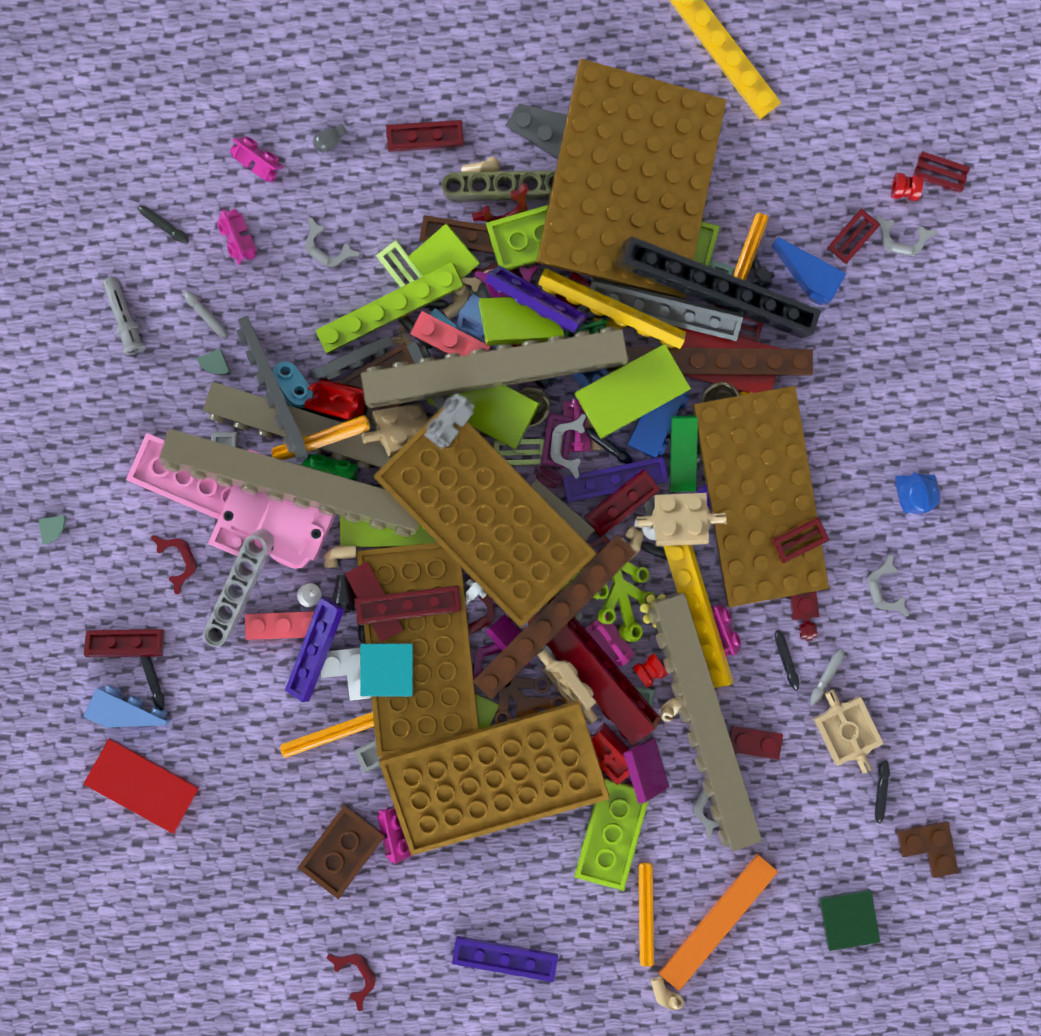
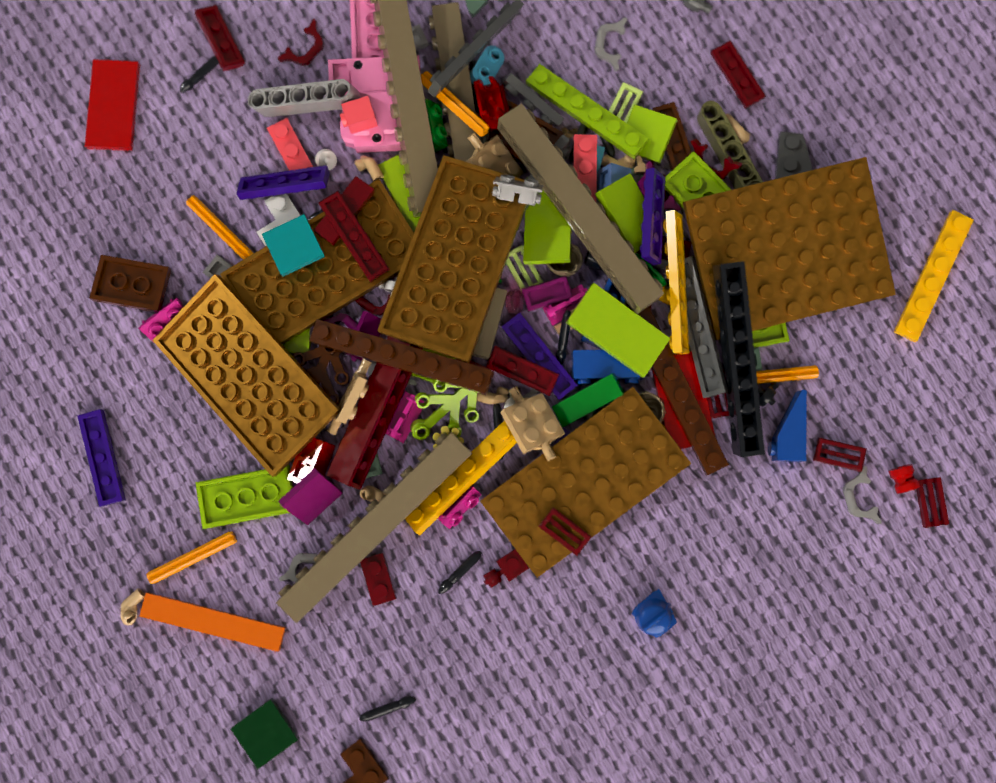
camera: 65 degrees right, 5 degrees down
(111, 710) = (163, 51): medium blue slope -> none
(286, 541) = (358, 115): none -> coral brick
(344, 594) = (338, 184): black cone -> none
(359, 961) = (47, 342): dark red helmet -> none
(557, 442) = (543, 292): light grey helmet -> none
(650, 670) = (395, 461): red wheel -> none
(827, 676) = (445, 612): light grey piece -> none
(848, 731) = (424, 653): tan plate -> none
(875, 591) = (553, 620): light grey helmet -> none

